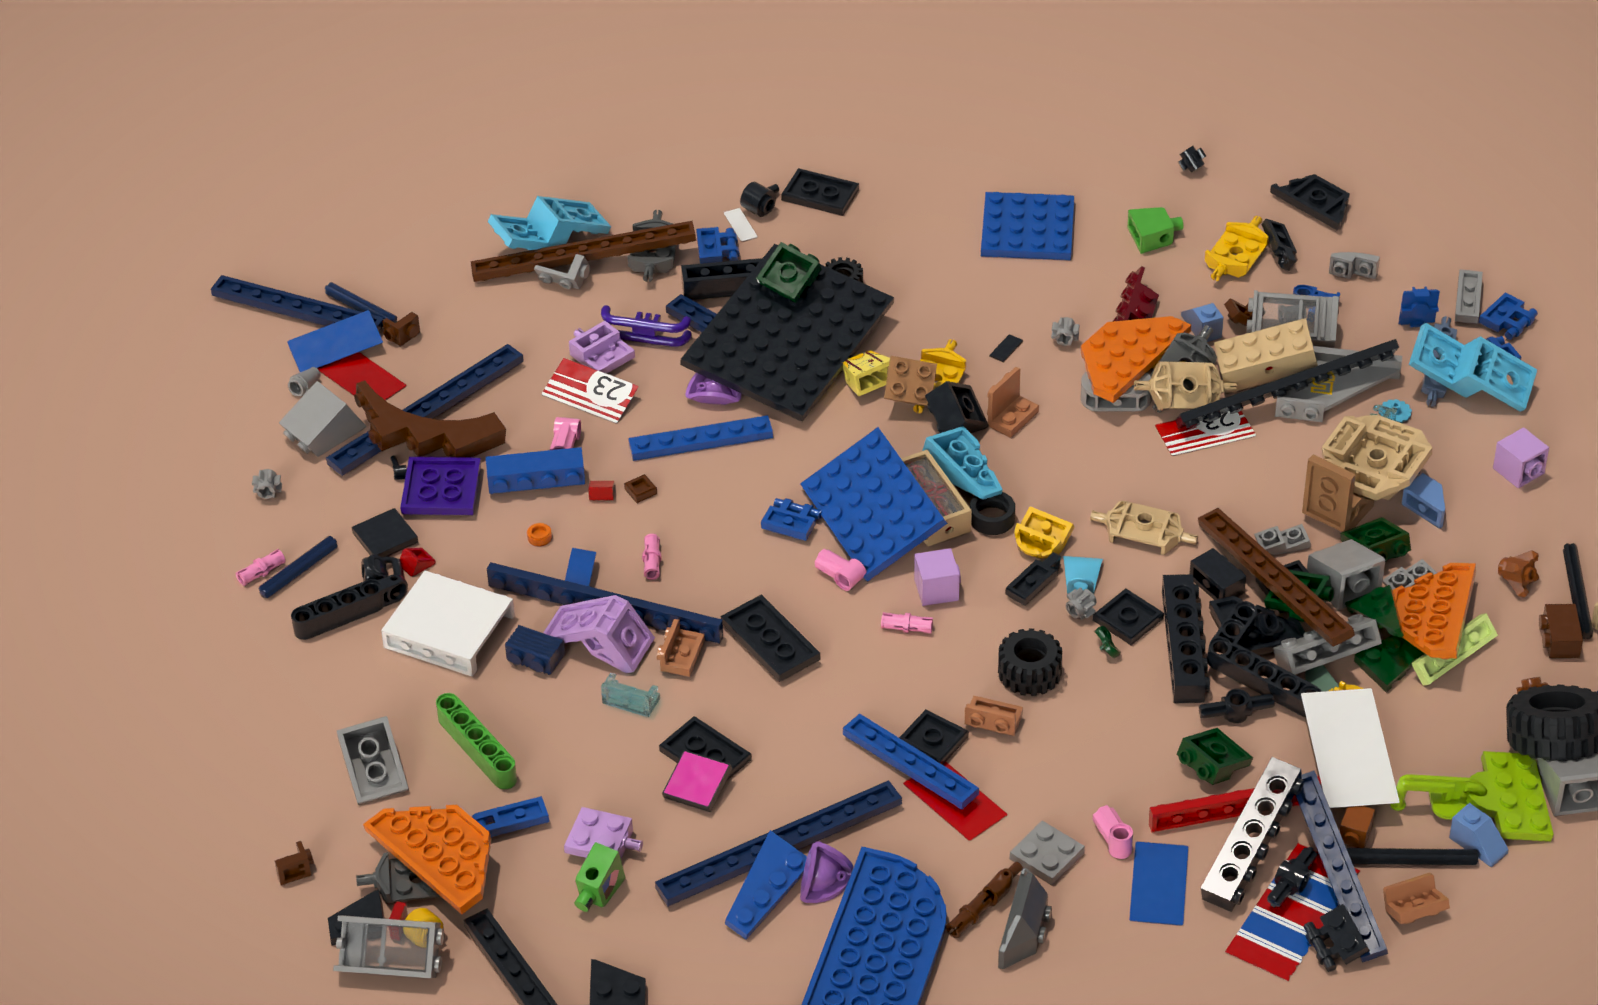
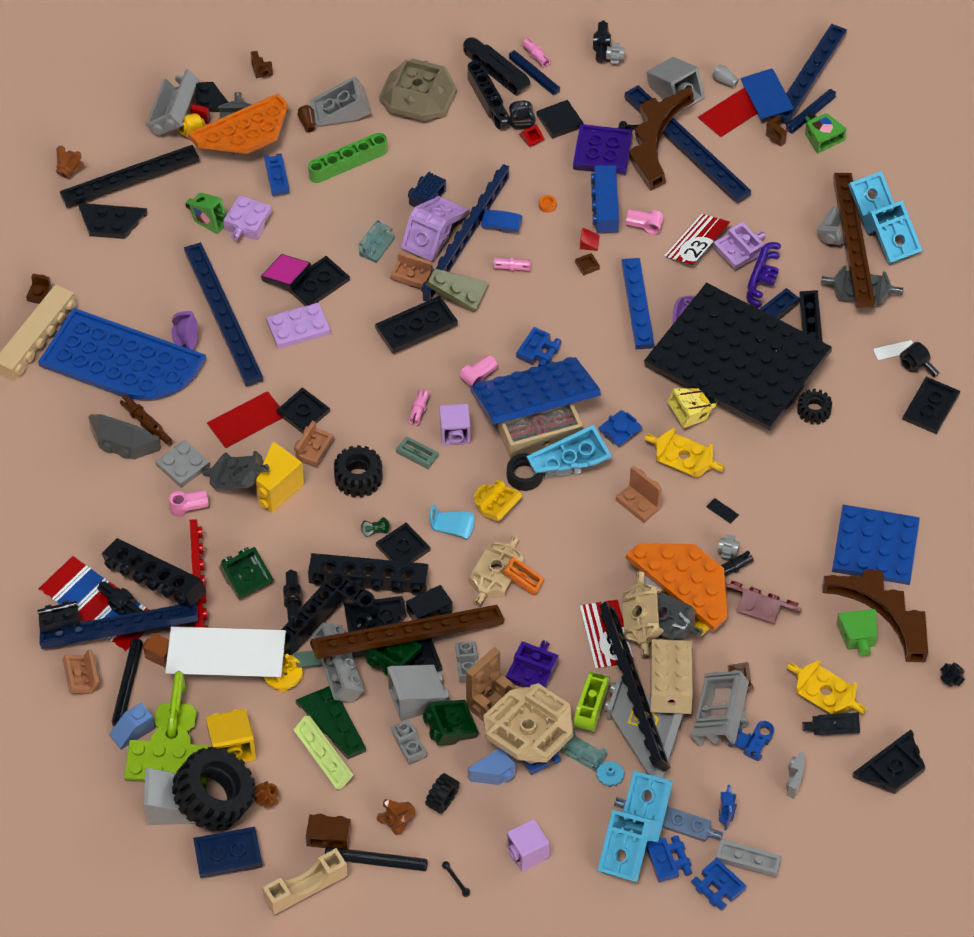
camera: 95 degrees right, 10 degrees up
(241, 501) = (601, 40): none -> black axle
(276, 611) = (496, 65): none -> black piece
(340, 682) = (418, 90): none -> dark tan piece
(399, 796) = (307, 118): none -> reddish brown cone
(401, 289) = (824, 131): none -> bright green torso
(445, 622) = (463, 145): white panel -> none
(708, 596) = (458, 288): none -> olive wing
(710, 248) = (862, 324): blue plate -> none
(768, 881) = (184, 298): blue wing -> none
(786, 762) = (298, 325): none -> lavender plate
(789, 271) = (785, 347): dark green plate -> none
(906, 435) = (620, 427): none -> blue piece
(909, 380) = (666, 426): medium nougat hinge -> none
(911, 761) = (279, 392): blue plate -> none
(955, 407) = (636, 452): black slope -> none
(972, 631) = (416, 455): none -> sand green tile
(1033, 579) = (449, 490): black hinge -> none
(1064, 734) = (281, 481): none -> yellow slope
(1069, 748) = (235, 471): none -> dark grey plate
(1081, 603) = (414, 512): light grey gear -> none
(1087, 328) = (736, 563): none -> black pin
(1112, 206) = (890, 604): none -> reddish brown arch
(1151, 500) = (521, 578): none -> orange tile
(1159, 883) = (143, 527): blue sticker -> none
(1203, 316) = (734, 648): medium blue slope -> none
(1276, 479) = (532, 665): none -> dark purple plate
(1314, 415) = (591, 701): none -> lime brick
(1379, 605) = (366, 700): dark green wing -> none
(1436, 609) = (360, 737): orange plate -> none
(1466, 729) = (232, 733): none -> yellow slope
(1476, 540) = (442, 793): none -> black tyre
(1589, 514) = (465, 891): none -> black hinge

